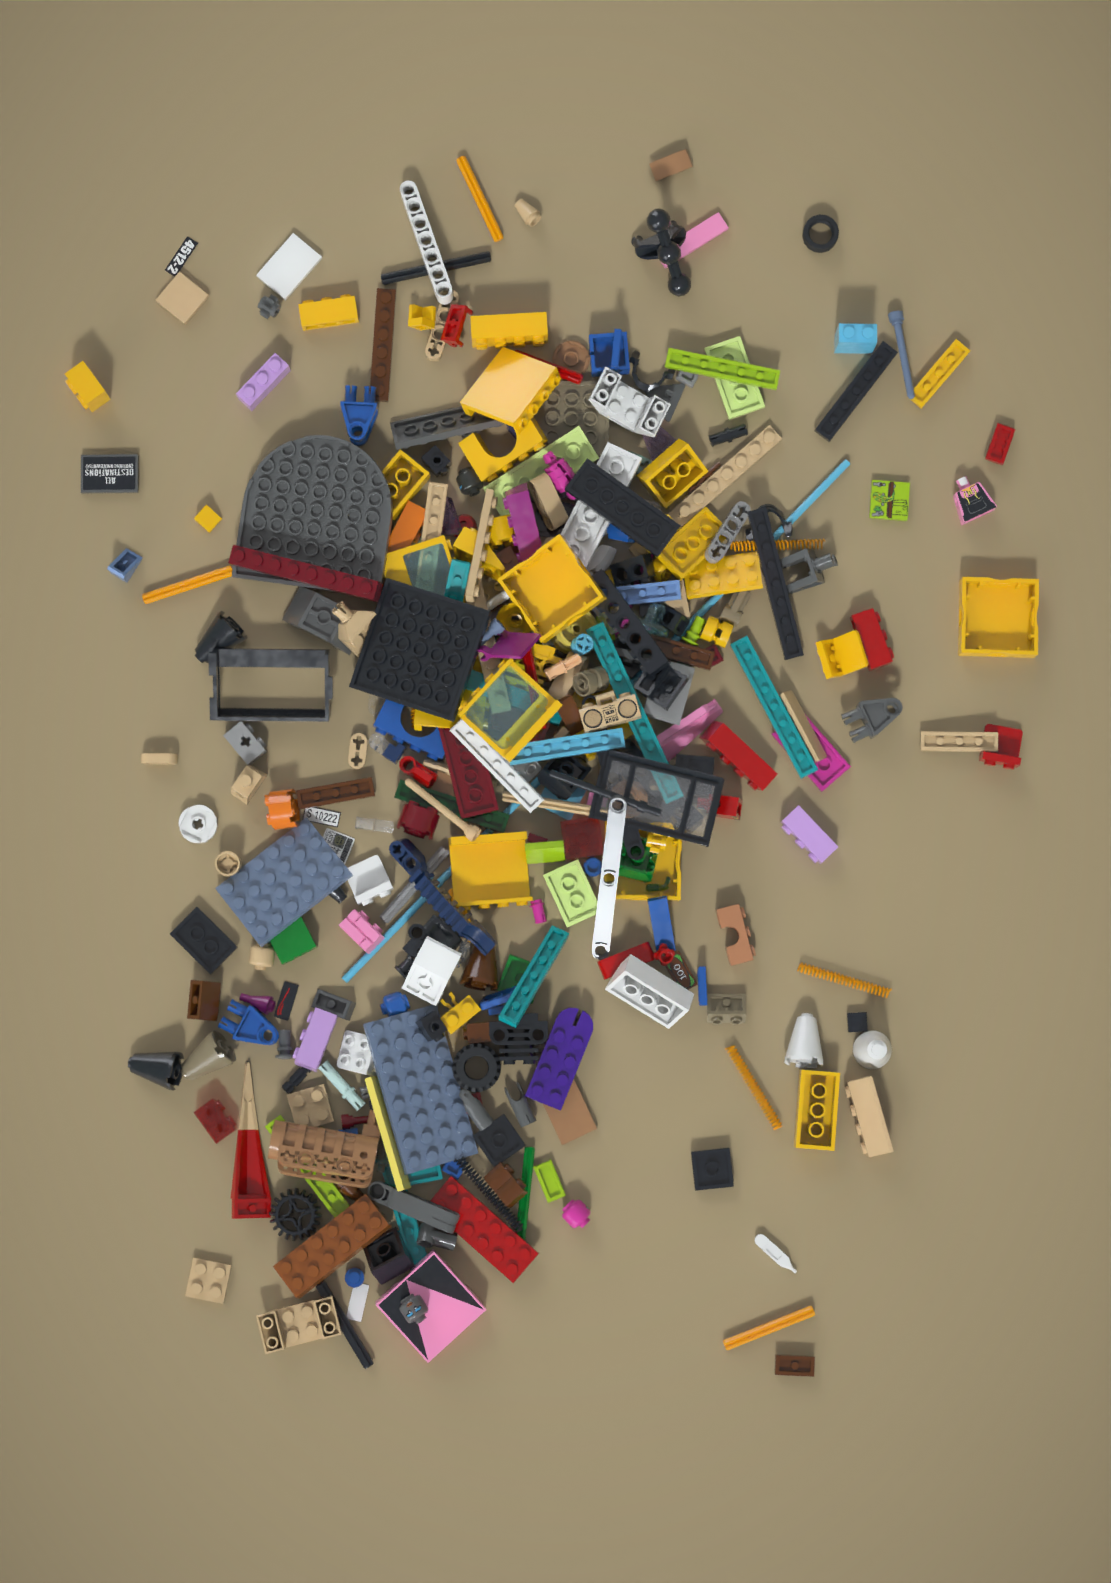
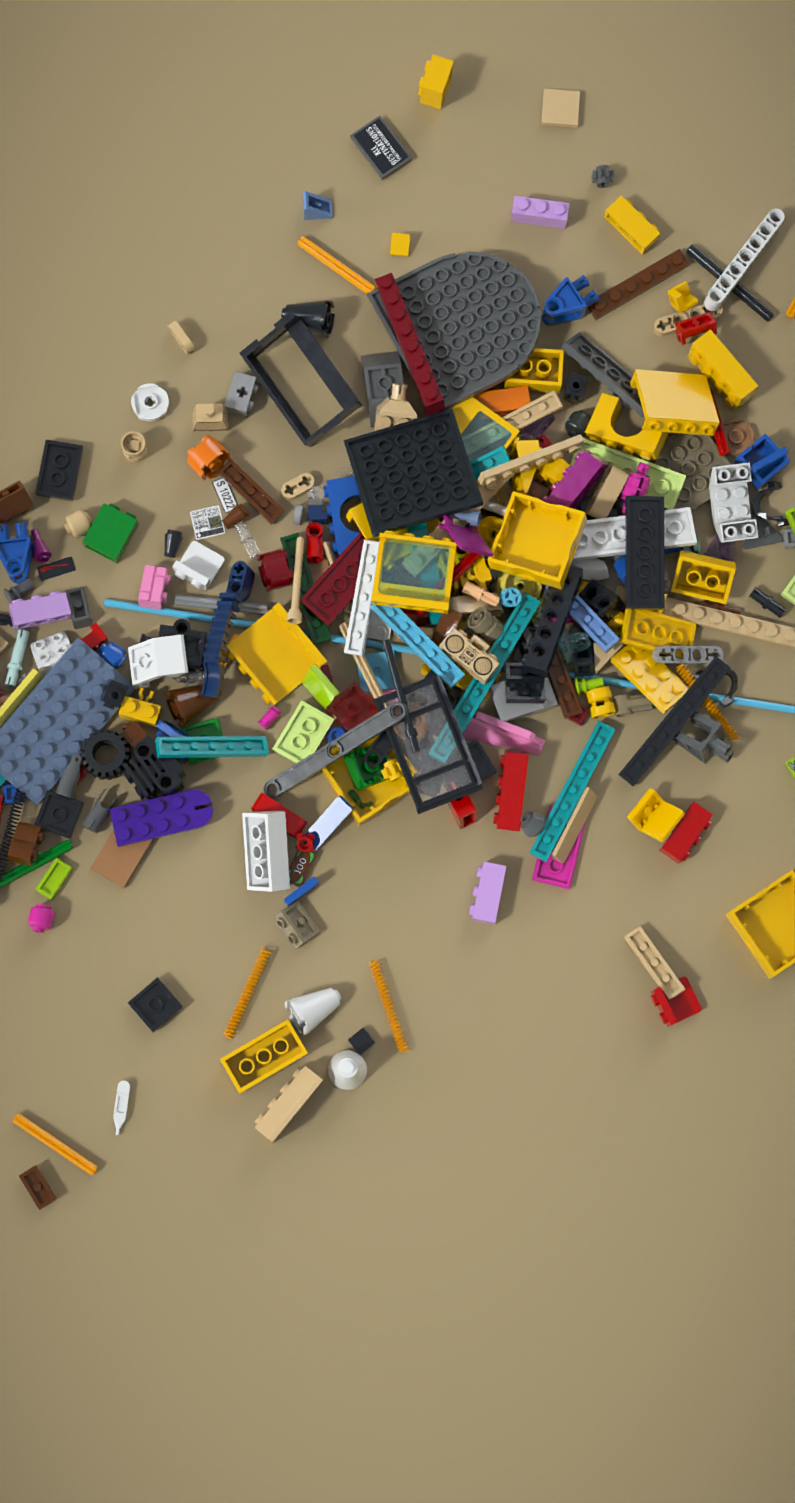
camera: 50 degrees right, 5 degrees down
(181, 256) = (593, 85): black sticker -> none
(284, 882) = (149, 499): sand blue plate -> none
(289, 266) = (646, 171): white tile -> none
(347, 819) = (235, 516): none -> reddish brown cone
(371, 1010) = (95, 638): none -> red leg
(382, 767) = (298, 514): none -> light grey tile
(572, 766) = (405, 657): black slope -> none
(733, 917) = (353, 903): nougat arch -> none
(779, 759) = (532, 824): none -> dark grey cone
(873, 715) = (625, 877): dark grey piece -> none

